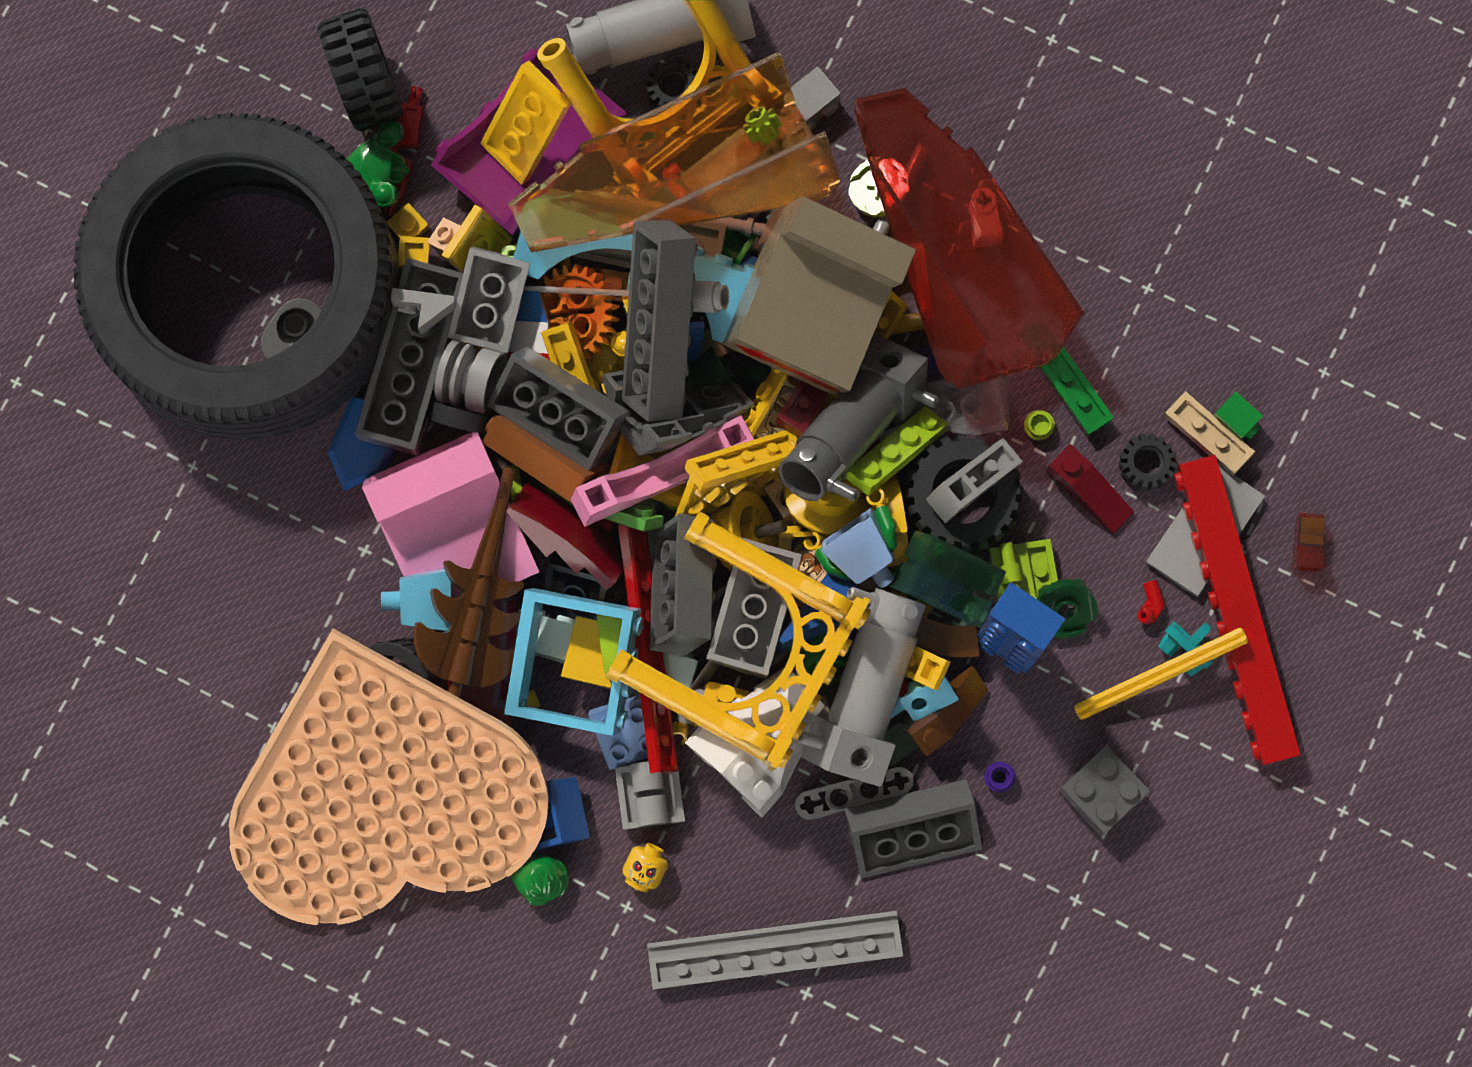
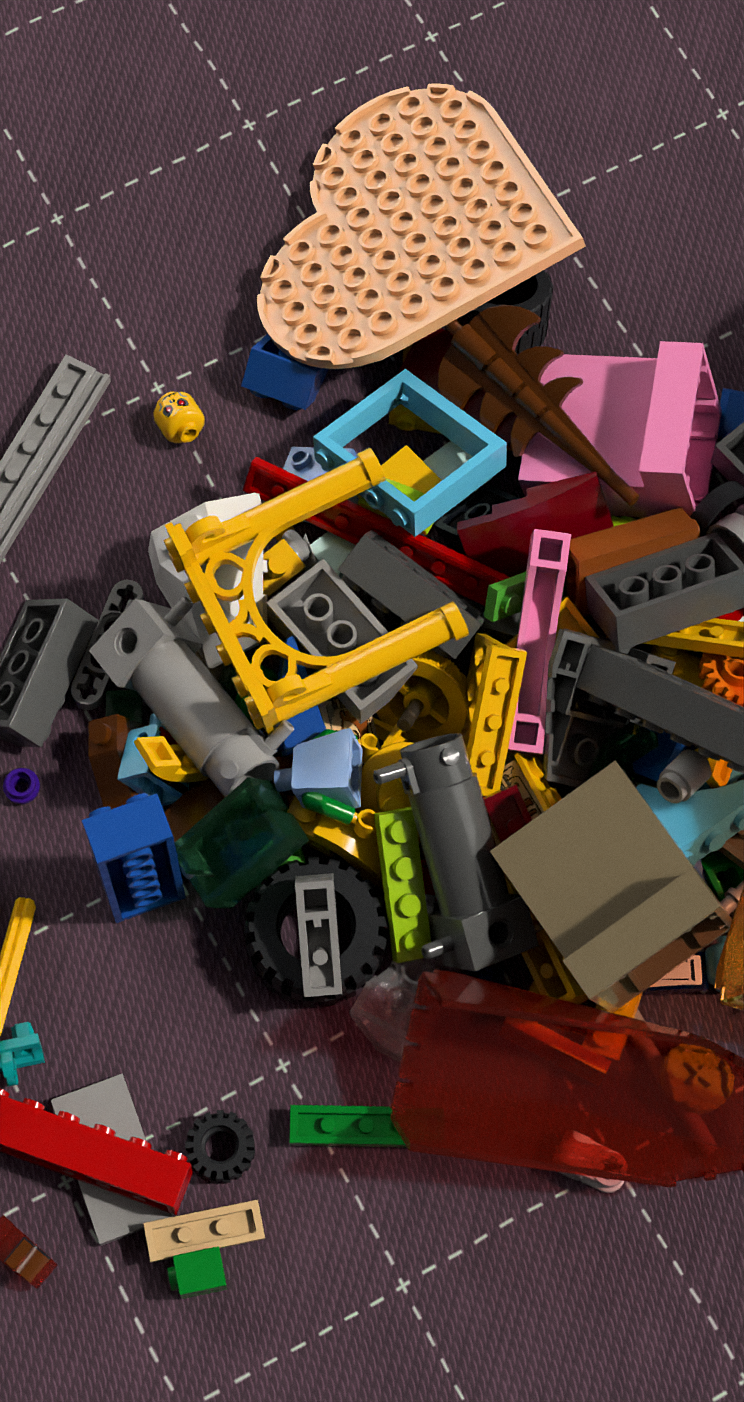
camera: 120 degrees right, 10 degrees down
(415, 598) = (576, 344): medium azure torso -> none
(541, 879) = (235, 326): green hair -> none
(648, 797) = (230, 457): light grey plate -> none
(1027, 565) = (196, 943): lime plate -> none
(1039, 425) = (336, 1066): lime plate -> none
(1072, 593) = (149, 948): dark green plate -> none
(1089, 488) = (235, 1068): dark red slope -> none
(1154, 604) = (73, 1049): red arm -> none

